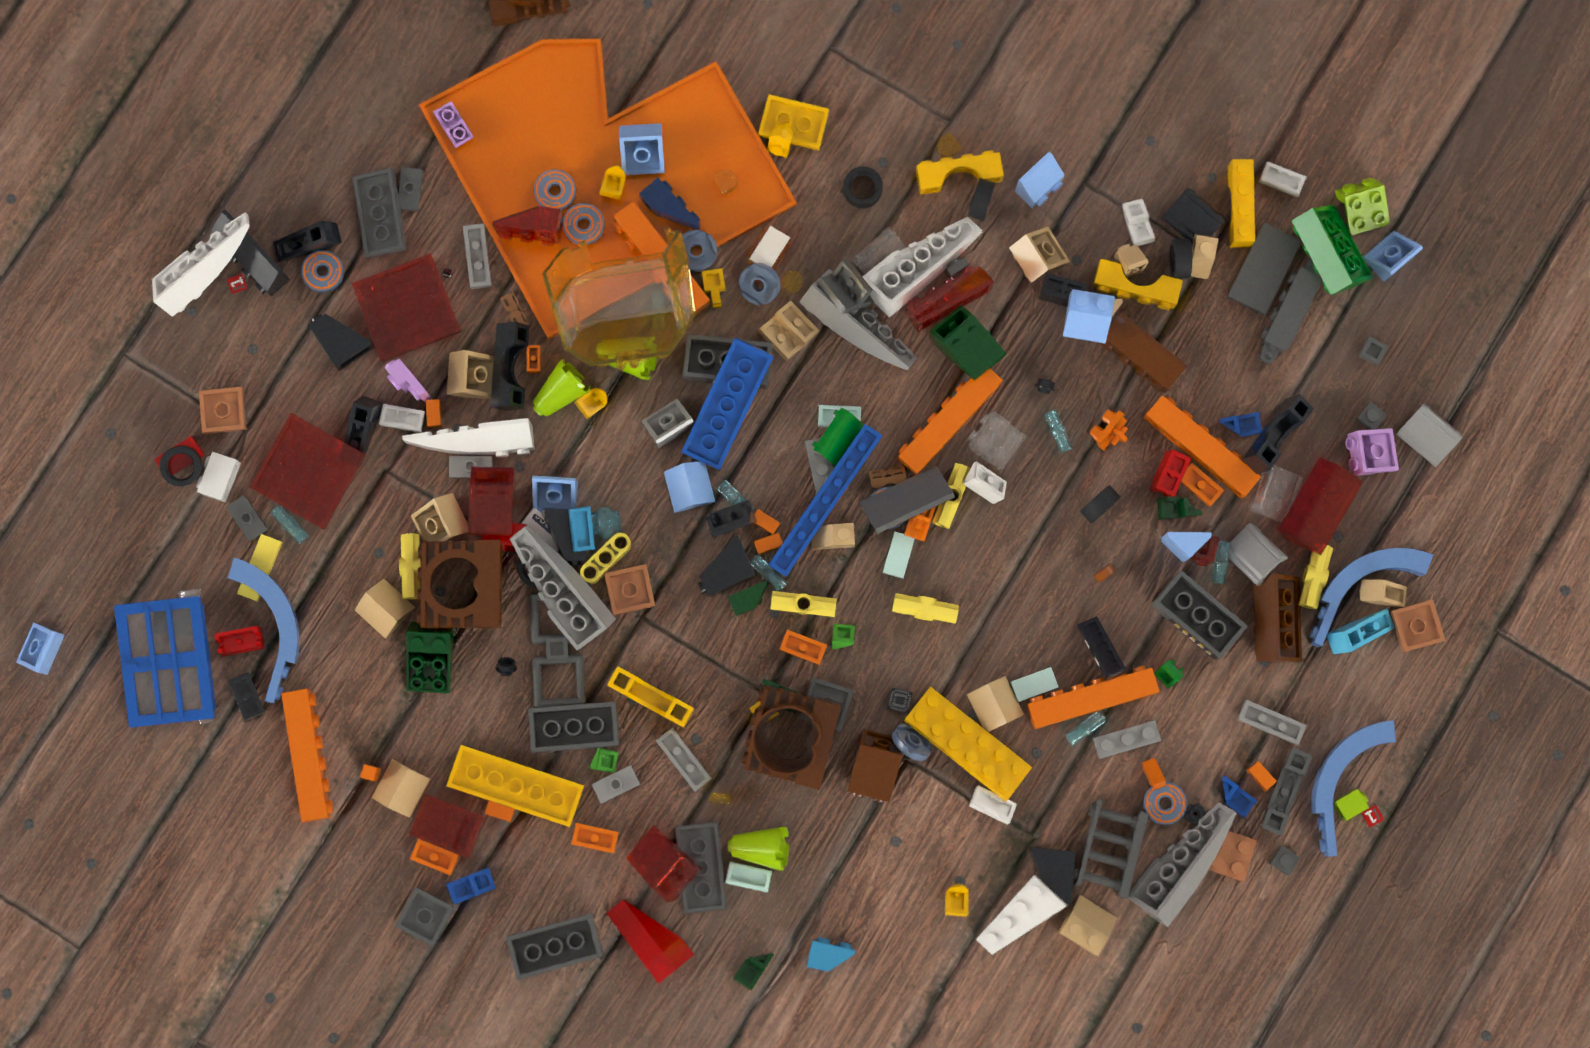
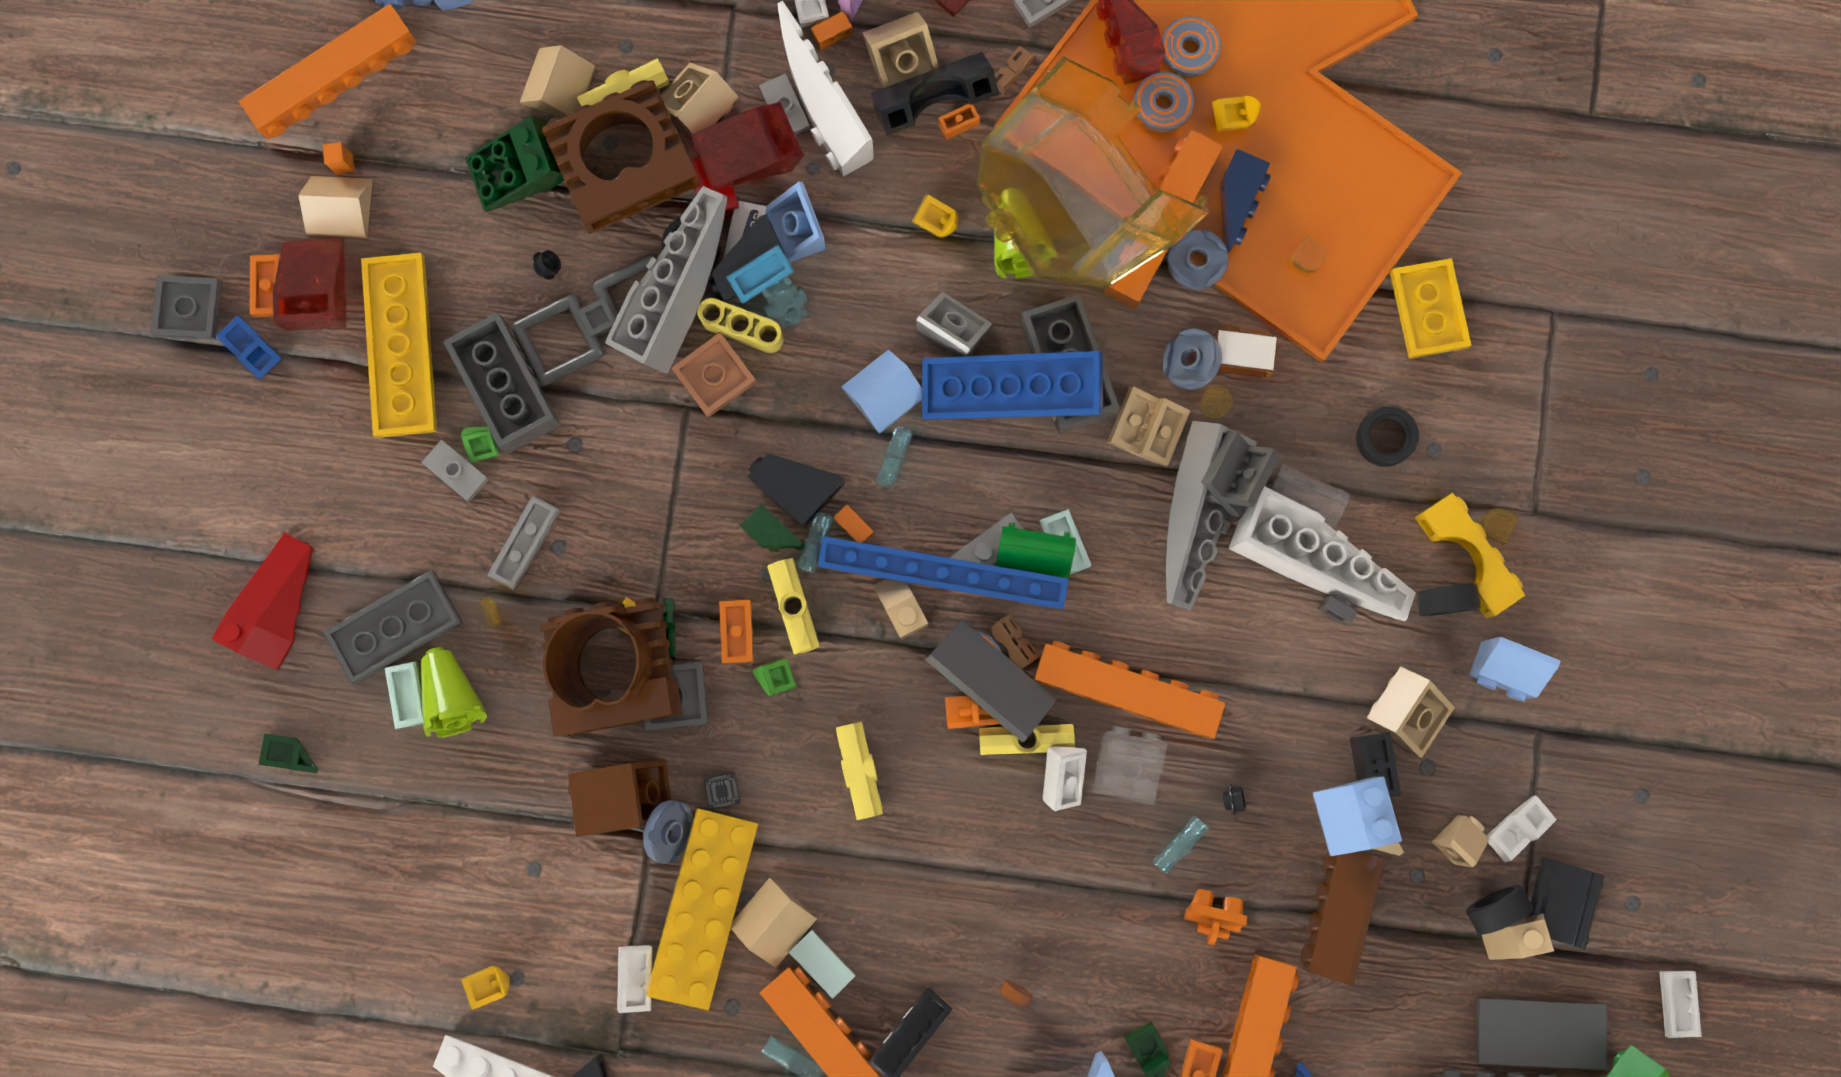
camera: 70 degrees right, 0 degrees up
(500, 811) = (356, 340): orange piece -> none
(555, 946) = (210, 485): dark grey brick -> none
(560, 389) = (935, 169): lime cone -> none
(595, 838) = (373, 475): orange plate -> none
(641, 149) = (1298, 128): light blue slope -> none
(650, 697) = (582, 486): yellow arch -> none
(663, 864) = (370, 577): clear red slope -> none
(714, 283) = (1165, 301): yellow plate -> none
(731, 518) = (863, 461): black hinge -> none
(766, 522) = (880, 509): orange piece -> none
(780, 140) = (1397, 301): yellow plate -> none
(826, 955) = (343, 845): dark azure slope -> none
(898, 555) = (915, 703): light aqua tile -> none
(944, 300) = (1292, 616): clear red slope -> none
(966, 342) = (1242, 667): dark green slope -> none
(1100, 504) = (1106, 947): black tyre -> none
(1110, 278) = (1424, 827): yellow arch -> none
(1170, 473) = (1194, 1025): red hinge -> none
(1243, 211) = (1598, 972): yellow arch -> none

